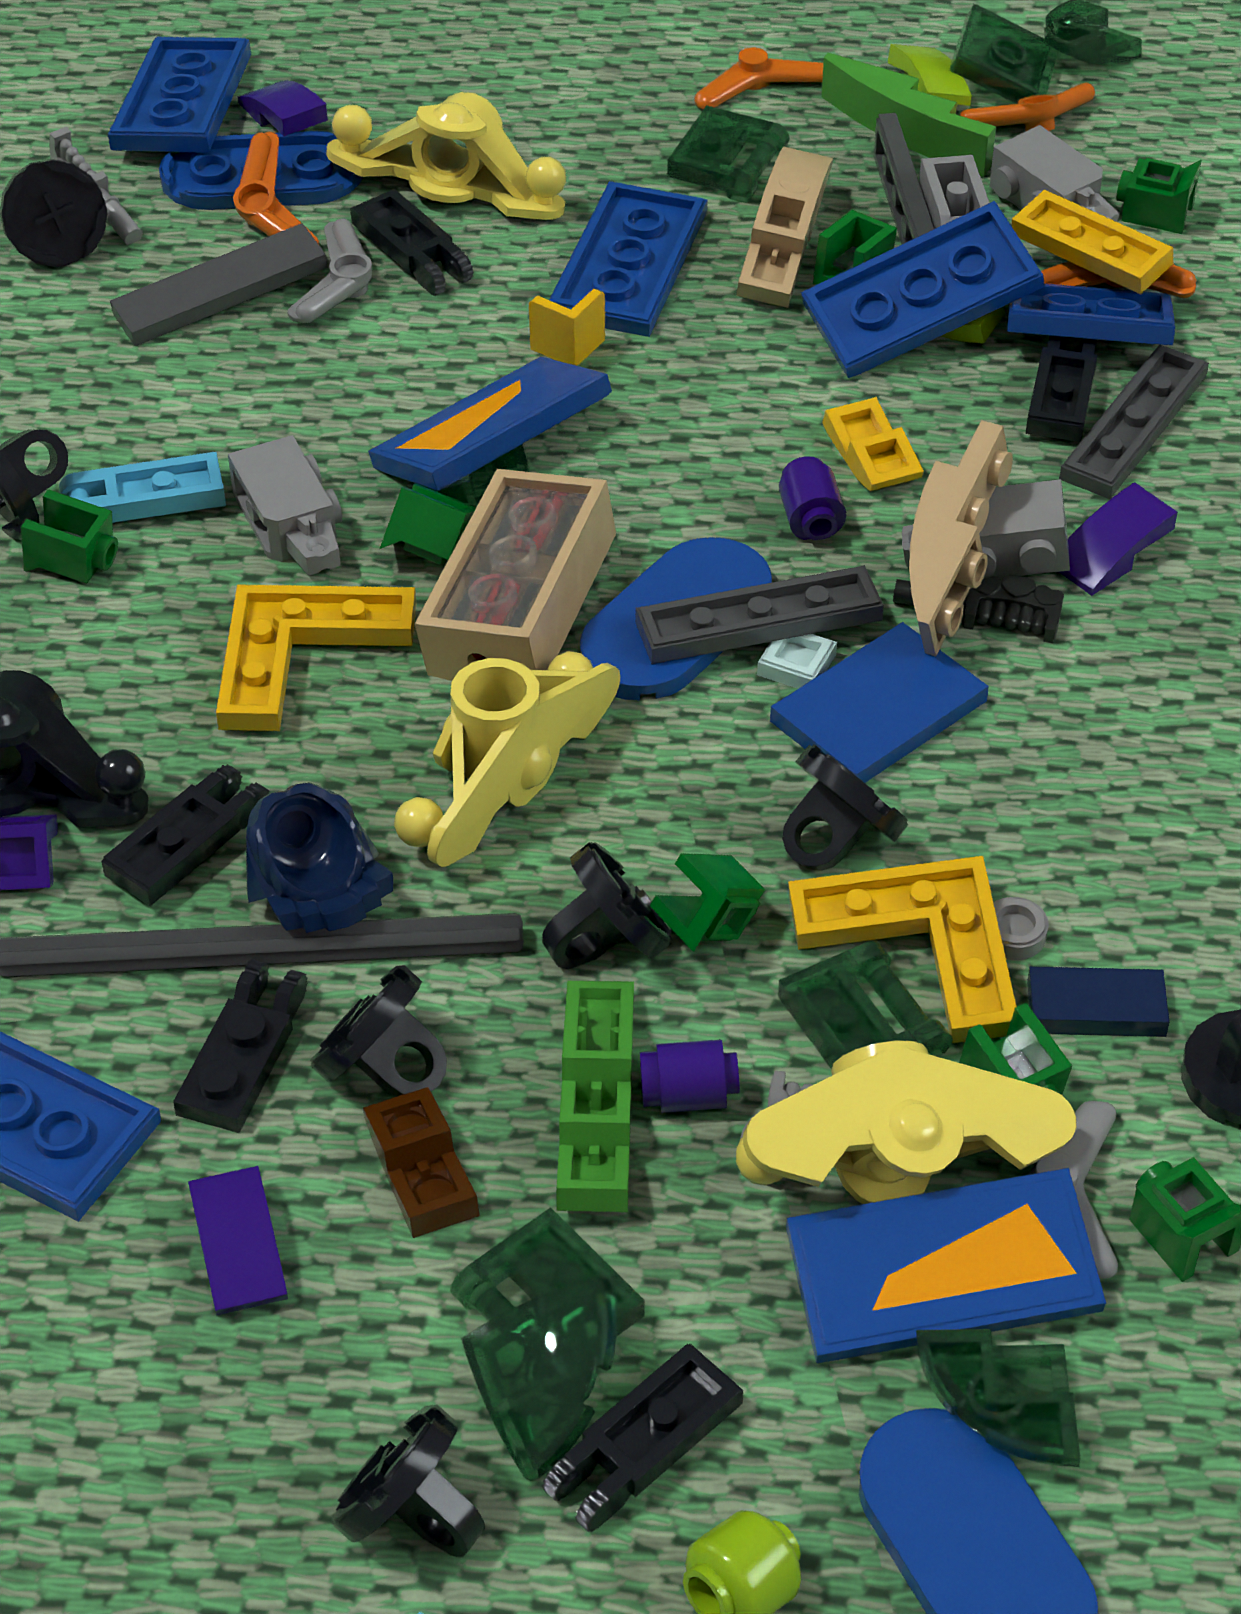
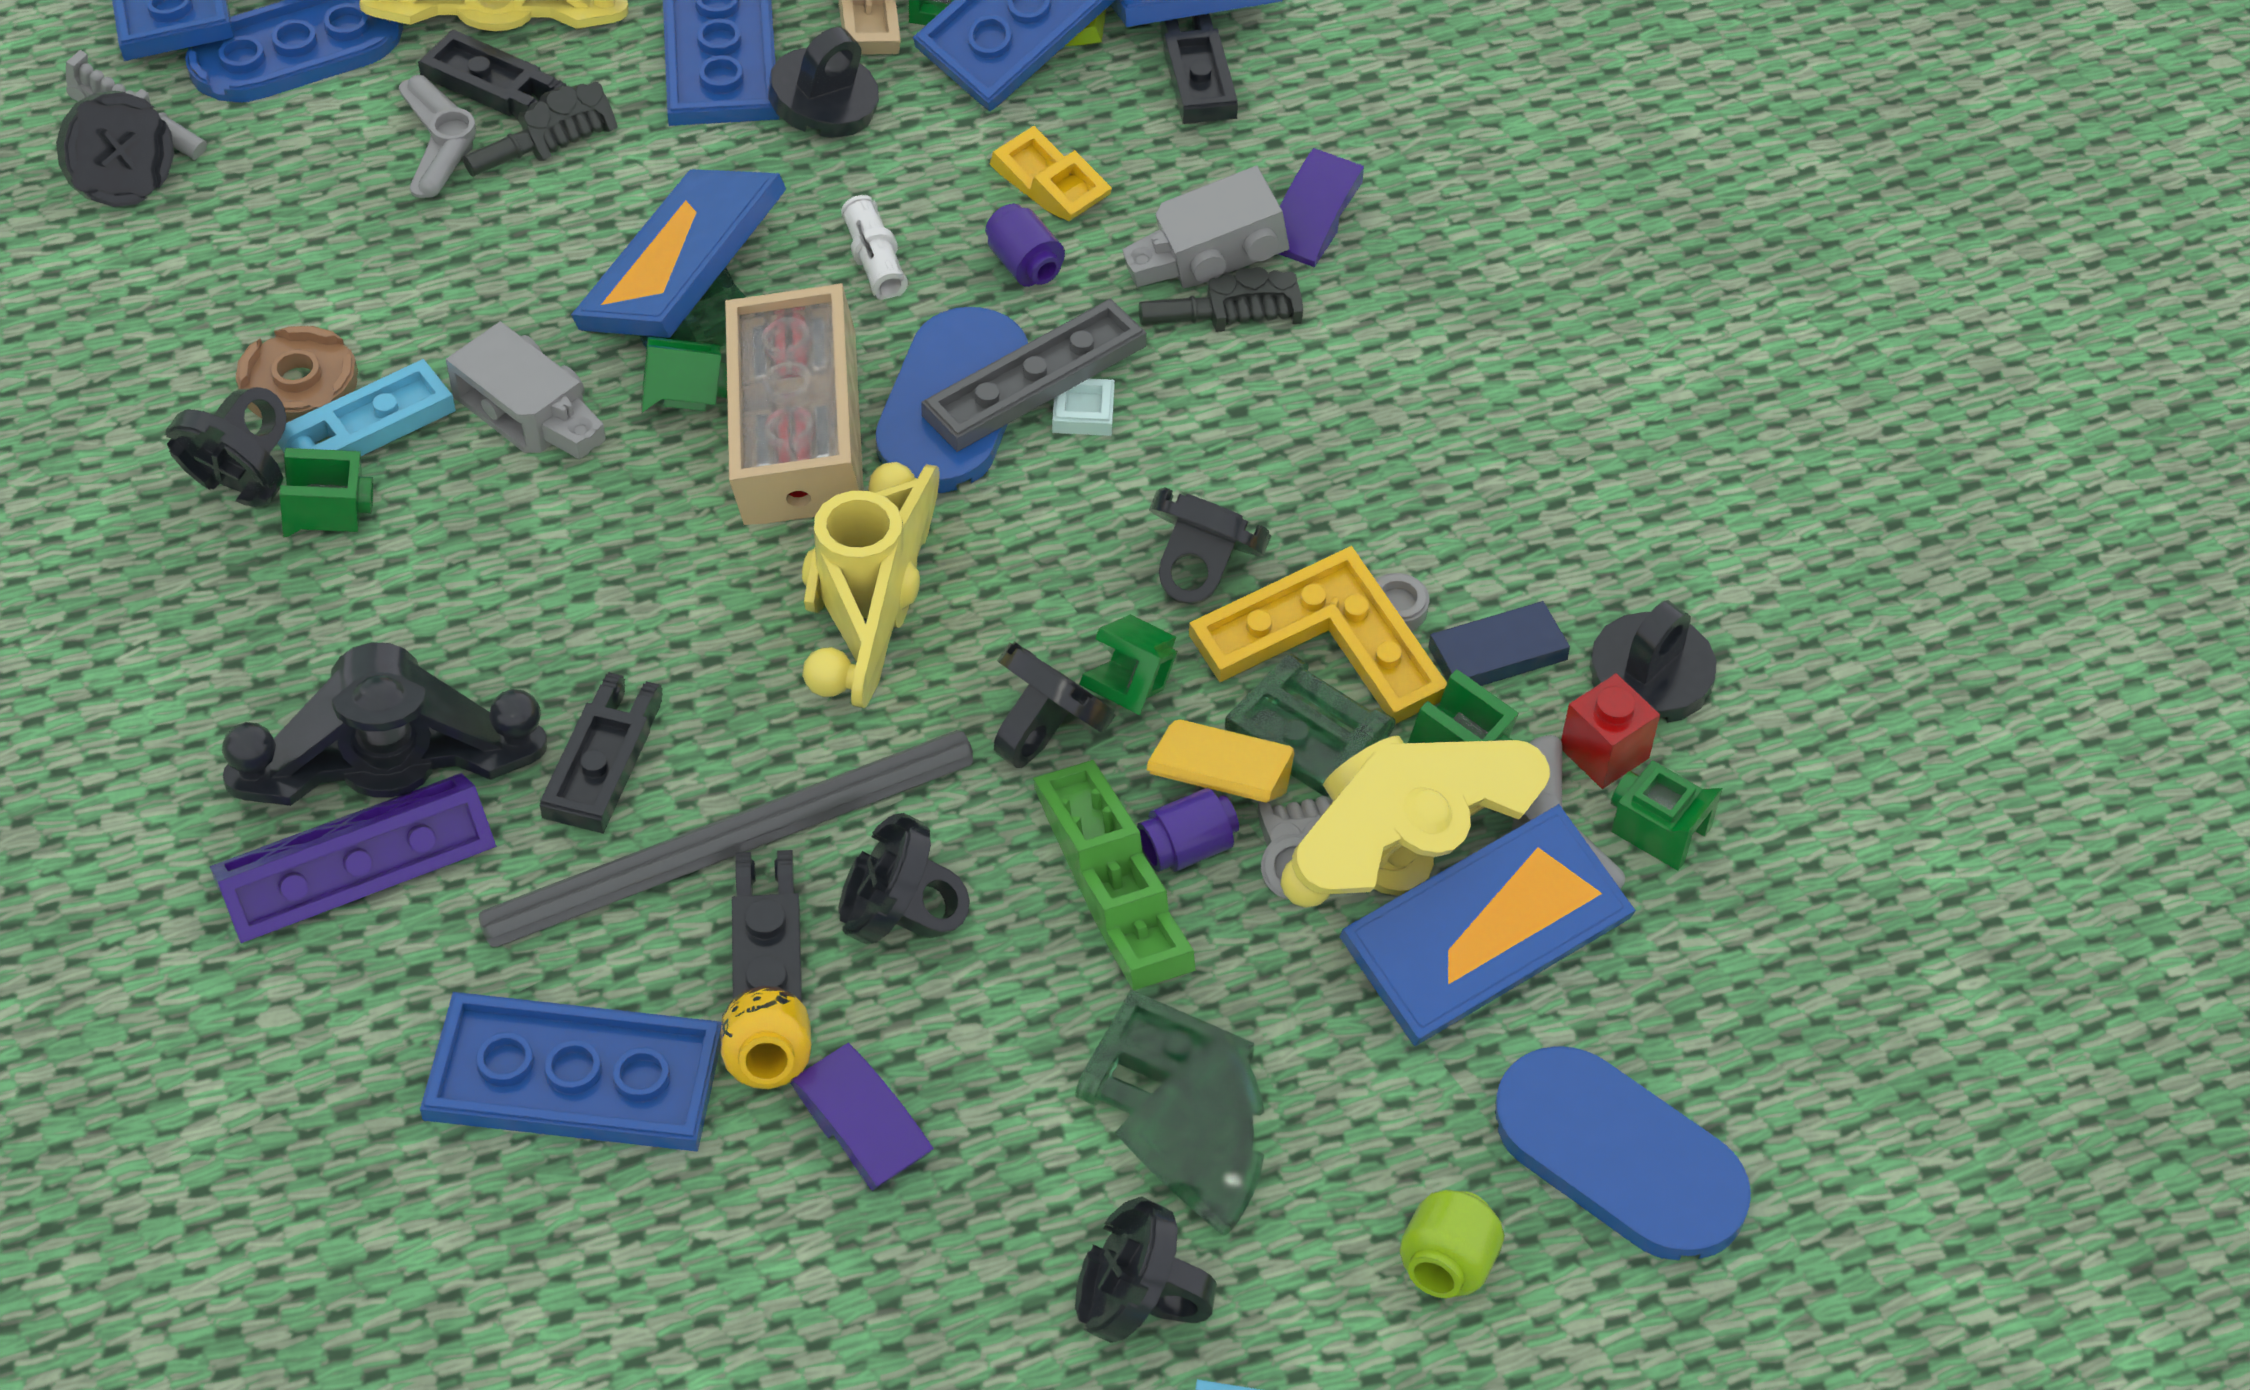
camera: 25 degrees left, 5 degrees up
(134, 420) = (309, 347): none -> medium nougat tile
(181, 1134) = (765, 1037): none -> yellow head
(218, 284) = (322, 180): dark grey tile -> none
(256, 192) = (316, 79): orange piece -> none
(276, 616) = (577, 509): yellow plate -> none
(312, 860) = (751, 742): dark blue hair -> none
(421, 1162) = (982, 986): reddish brown slope -> none
(441, 286) = (549, 123): none -> pearl dark grey piece
(566, 332) = (700, 138): yellow panel -> none
(645, 1434) = (1310, 1156): black hinge -> none
(672, 465) = (874, 247): none -> white pin
(698, 316) = (825, 86): none -> black tile
(754, 1021) = (1223, 761): none -> yellow slope
(879, 703) = (1178, 426): blue tile -> none
(946, 531) = (1186, 252): tan slope -> none
(1005, 1392) = (1590, 1015): clear green brick -> none
(1134, 421) = (1274, 85): dark grey tile -> none
(1166, 1114) = (1609, 731): none -> red brick

